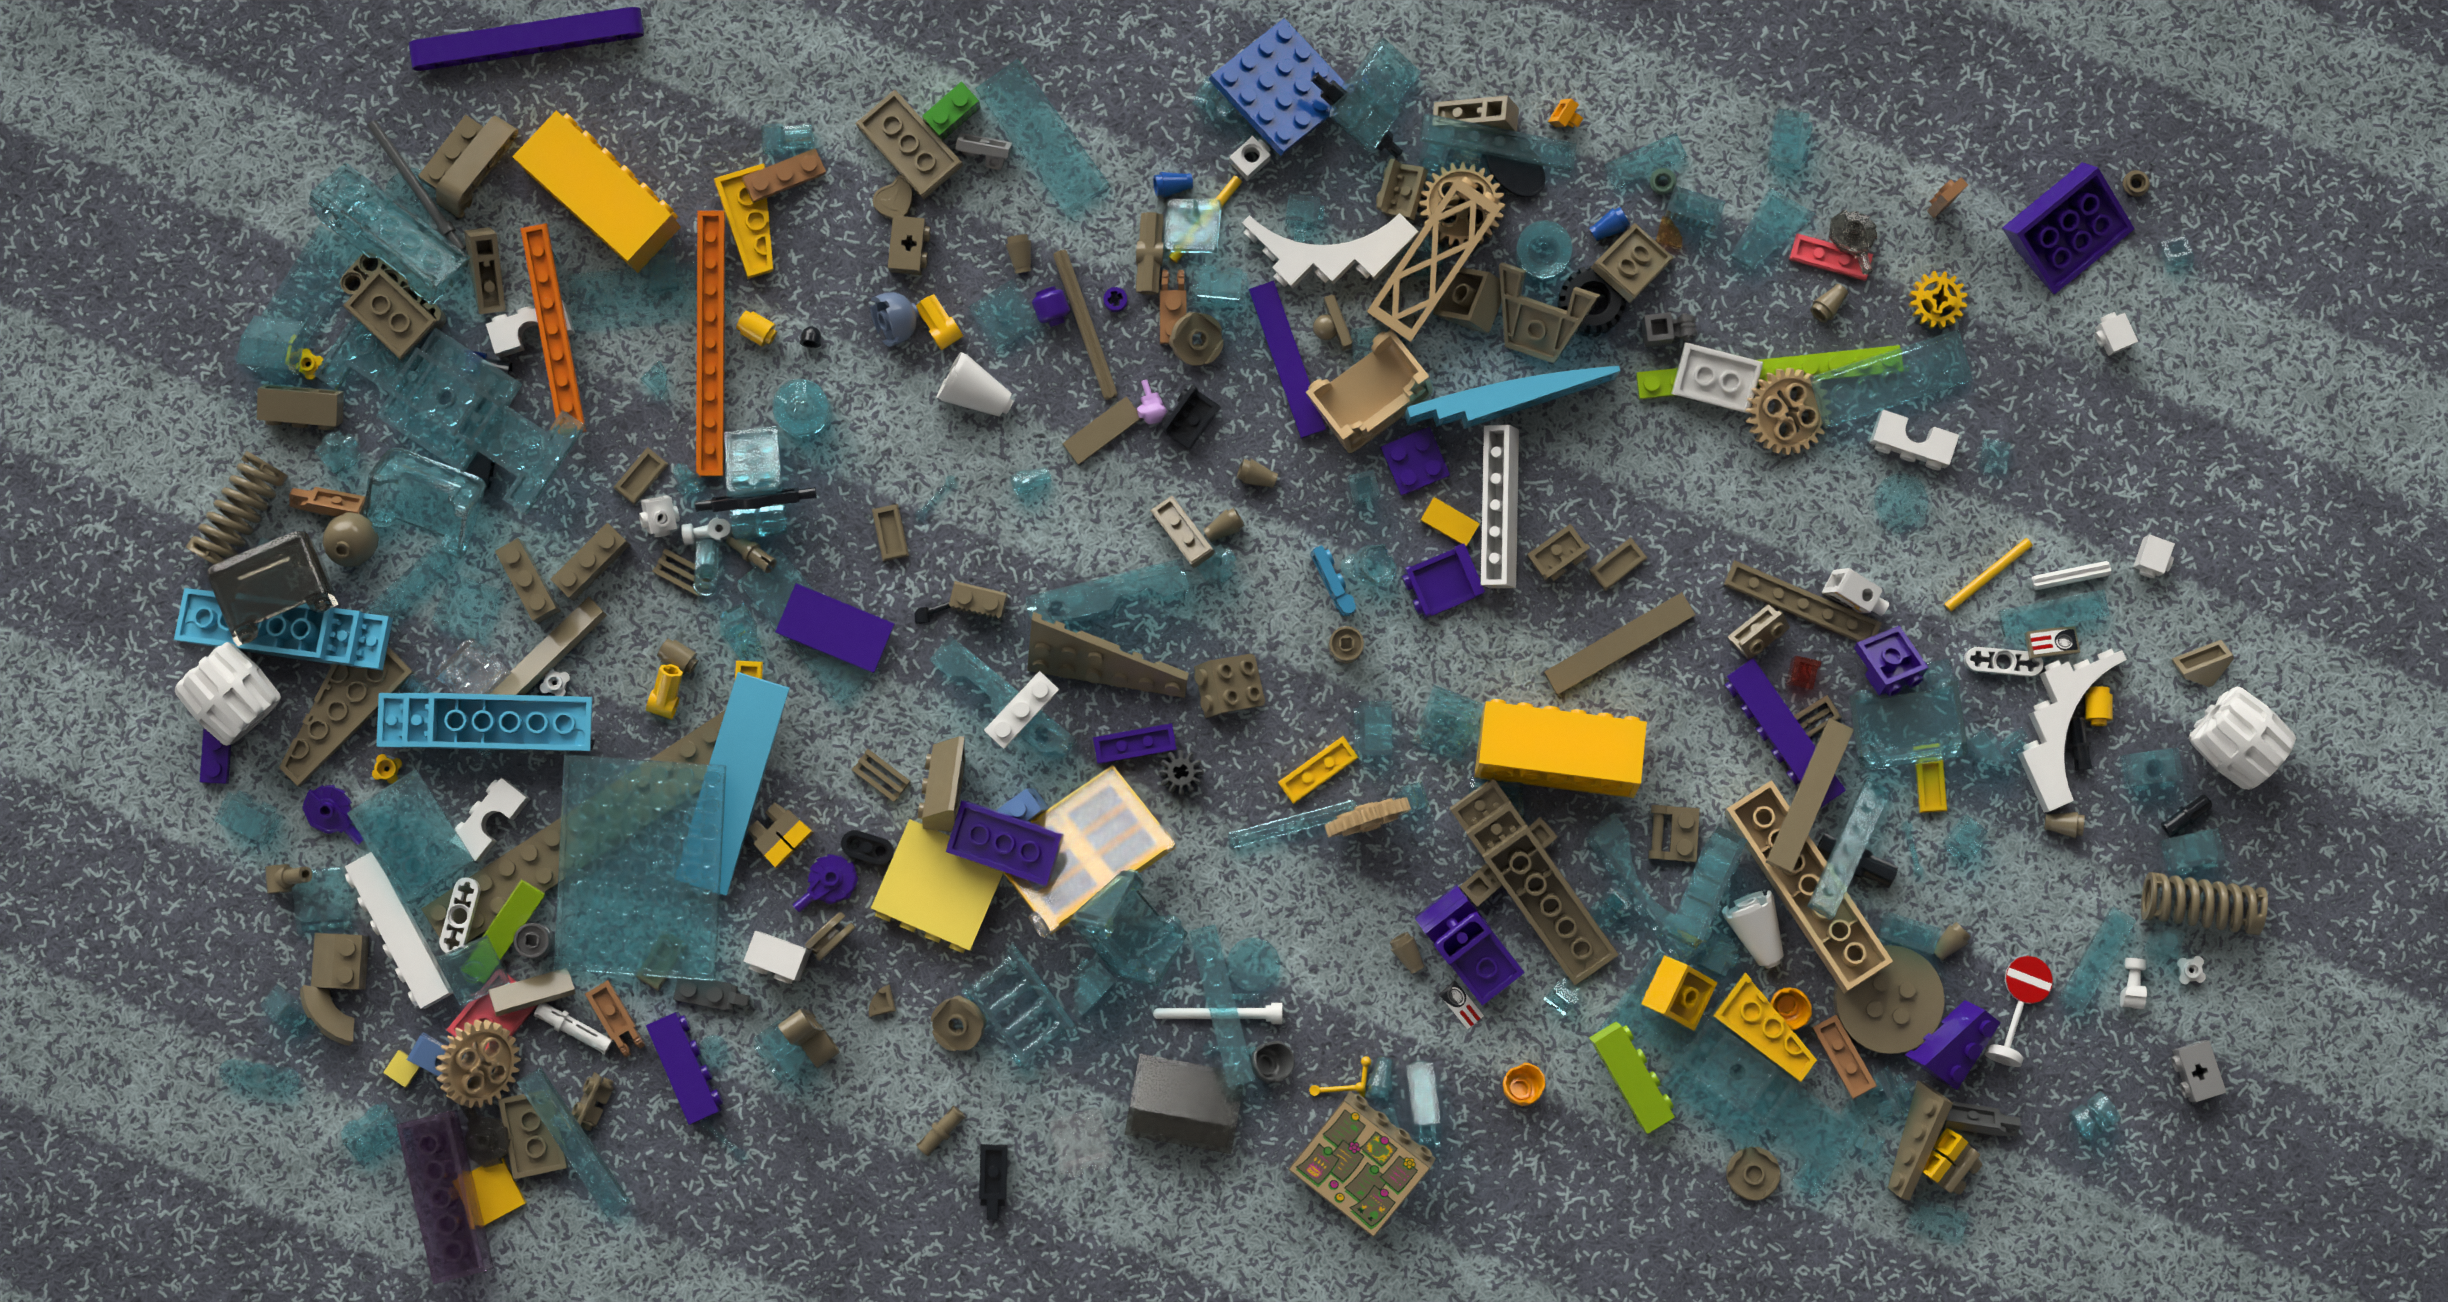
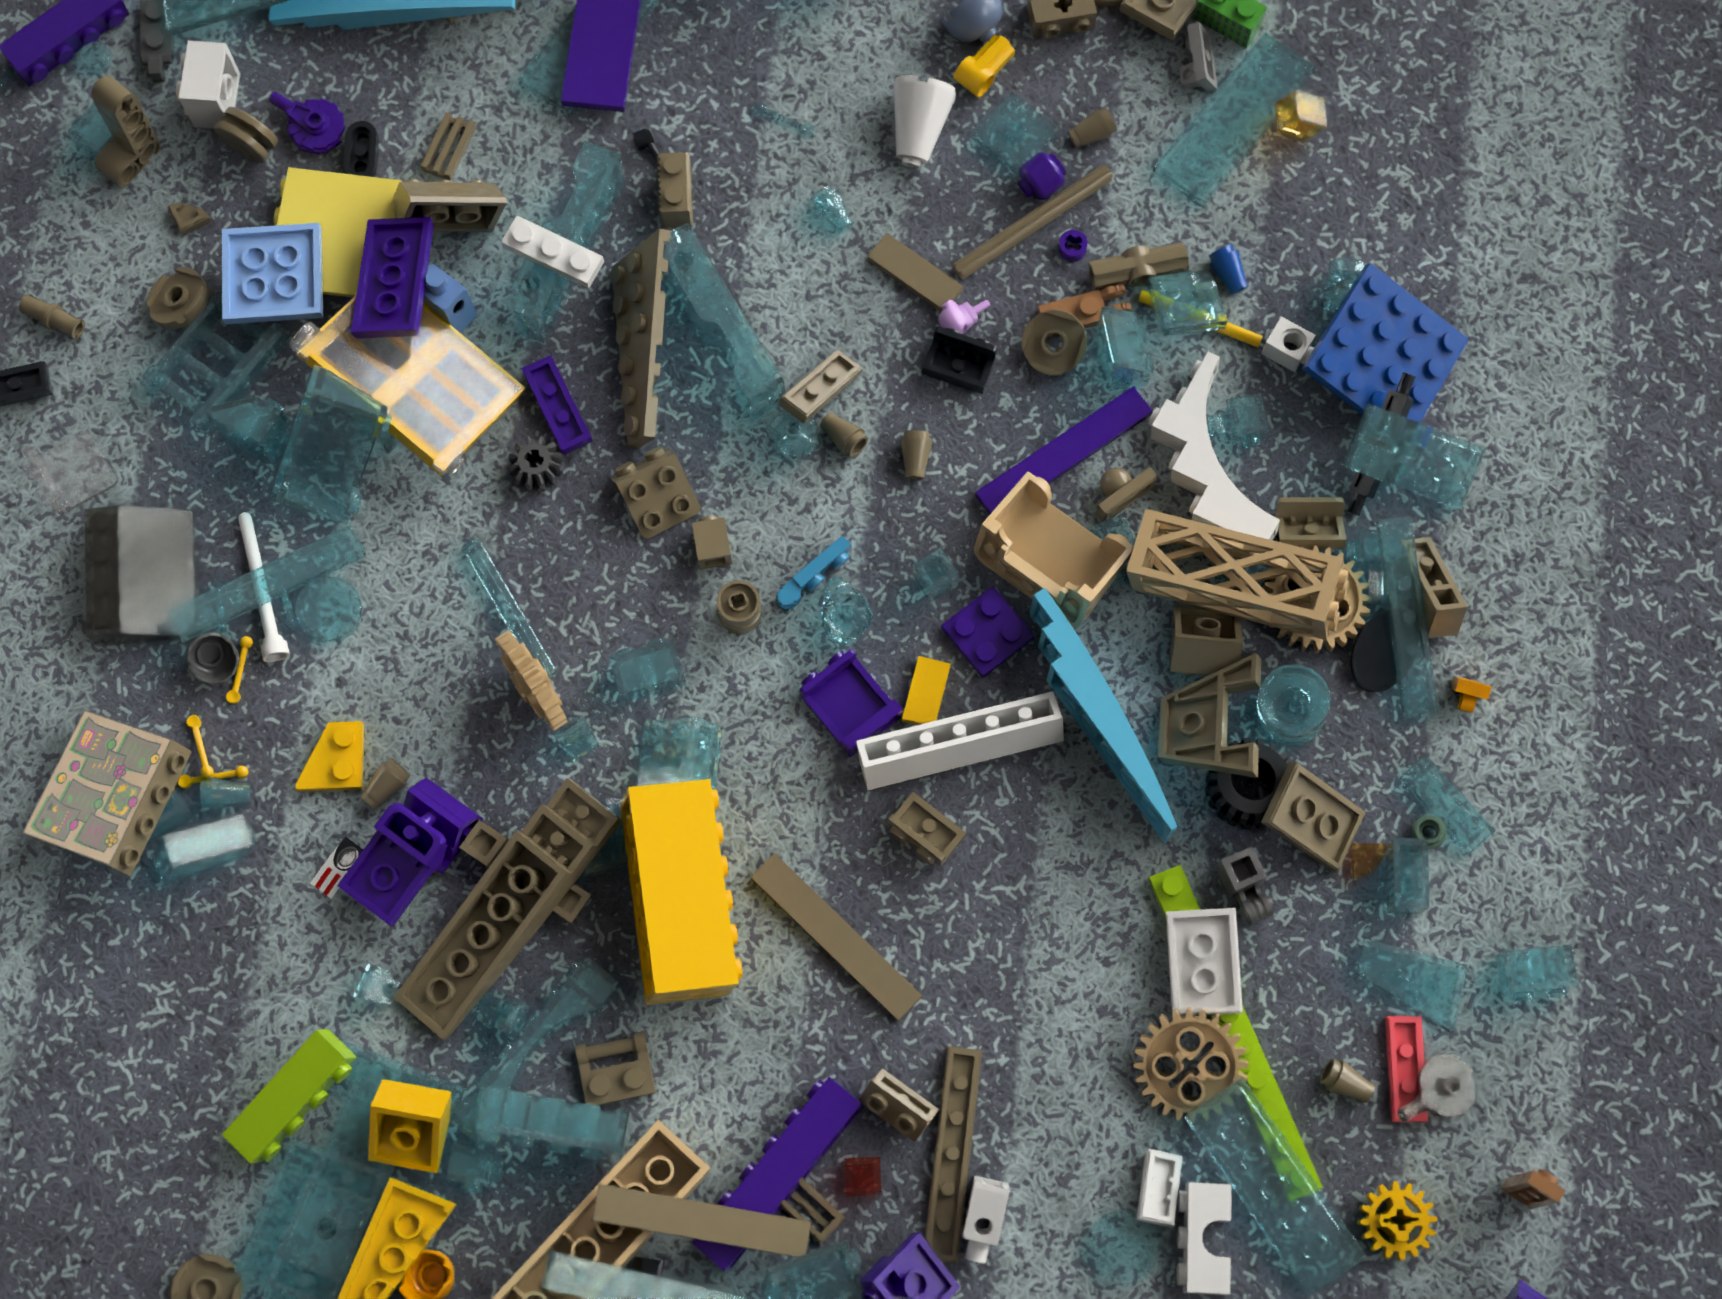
camera: 75 degrees right, 10 degrees down
(769, 841) = (349, 60): hips -> none
(890, 532) = (729, 82): dark tan tile -> none
(966, 940) = (272, 273): none -> light blue plate
(1059, 85) = (1300, 114): none -> clear yellow brick
(1262, 1035) = (233, 695): none -> yellow hinge
(1284, 652) = (711, 542): none -> dark tan brick
(1318, 770) = (581, 620): yellow tile -> none
(1376, 986) = (335, 759): none -> yellow wing
(1524, 1084) = (252, 965): light orange hair -> none
(1610, 224) = (1353, 782): blue cone -> none
(1617, 564) = (934, 908): dark tan tile -> none
(1757, 927) = (520, 1204): white cone -> none
(1868, 461) = (1159, 1188): none -> white plate

